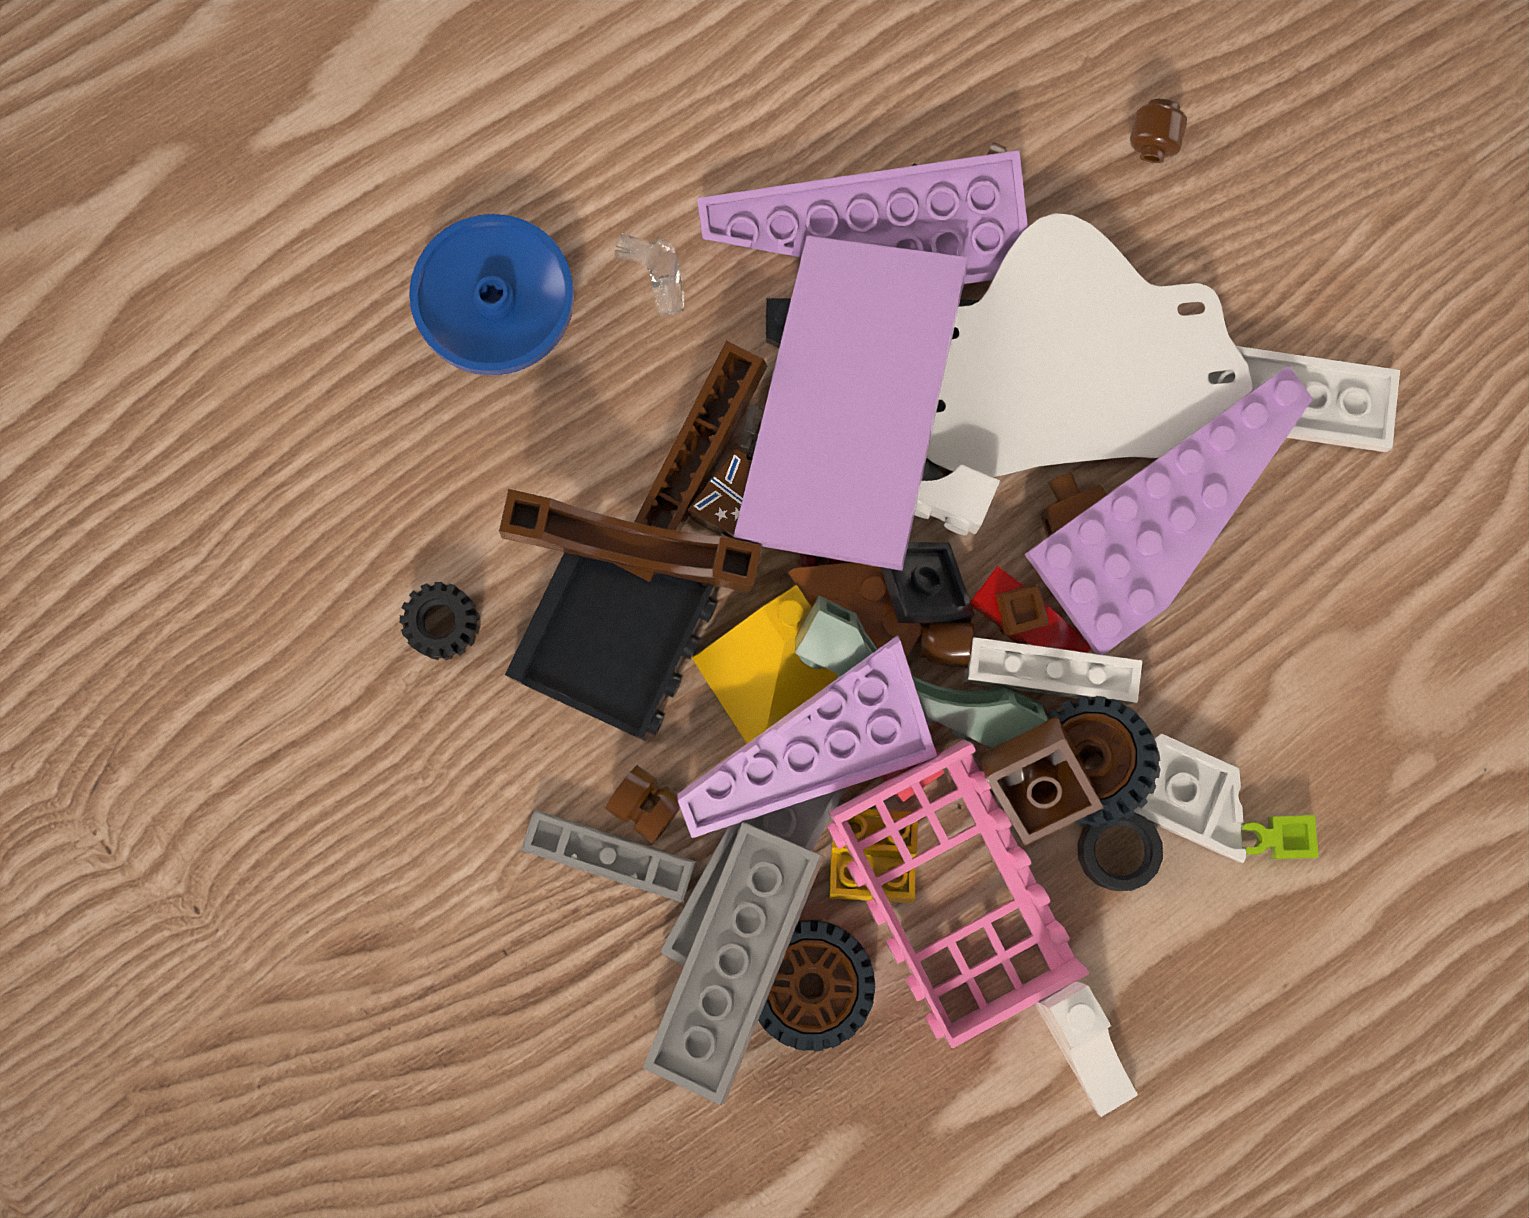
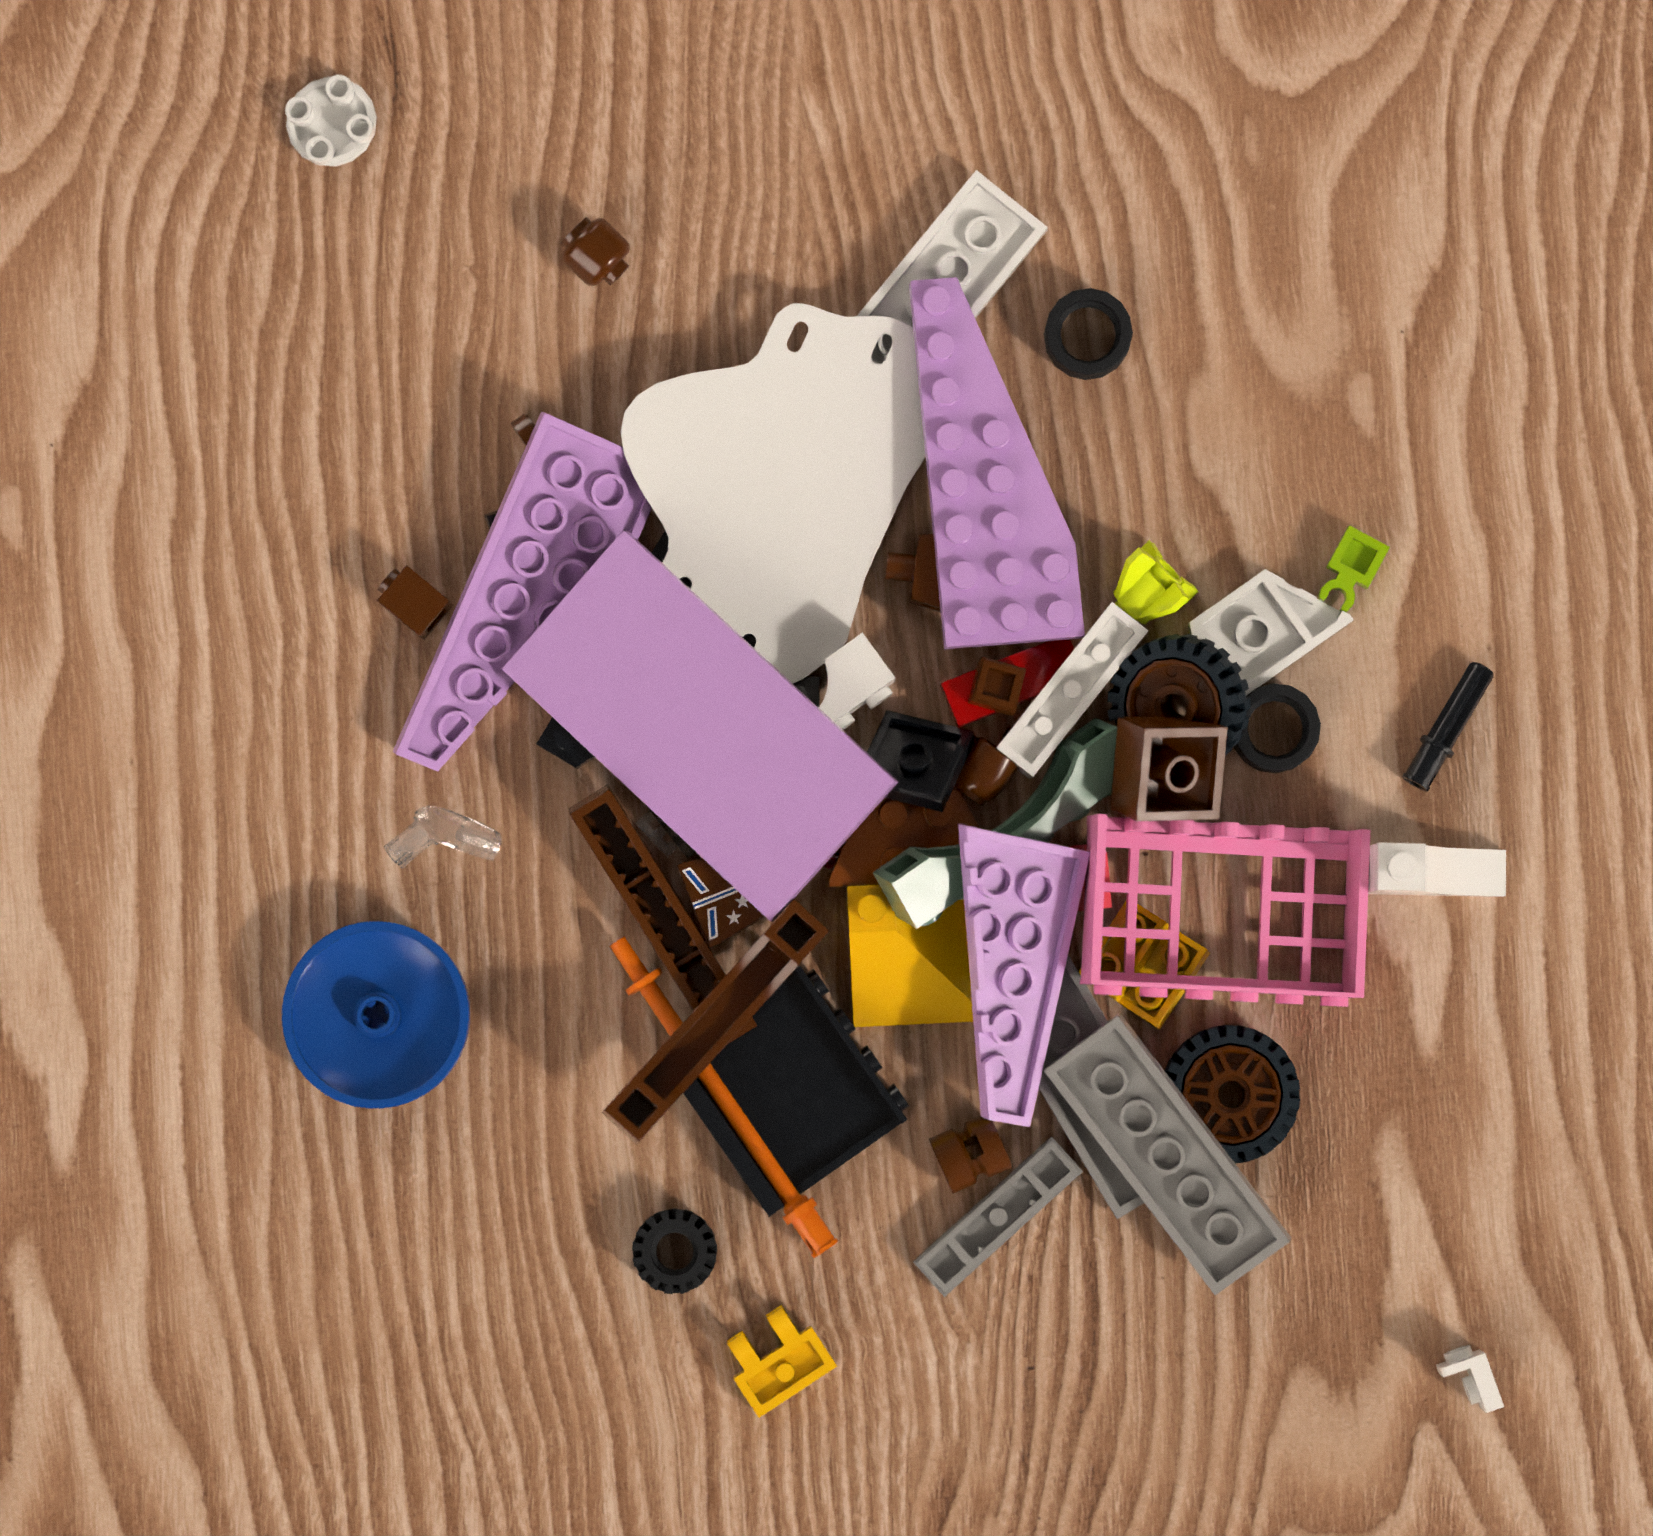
camera: 55 degrees left, 5 degrees up
(394, 759) = (785, 1369): none -> yellow plate
(526, 694) = (797, 1207): none -> orange bar
(818, 149) = (413, 601): none -> reddish brown brick
(1170, 686) = (1151, 586): none -> neon yellow brick
(1206, 989) = (1448, 726): none -> black axle
(1352, 505) = (1082, 299): none -> black tyre

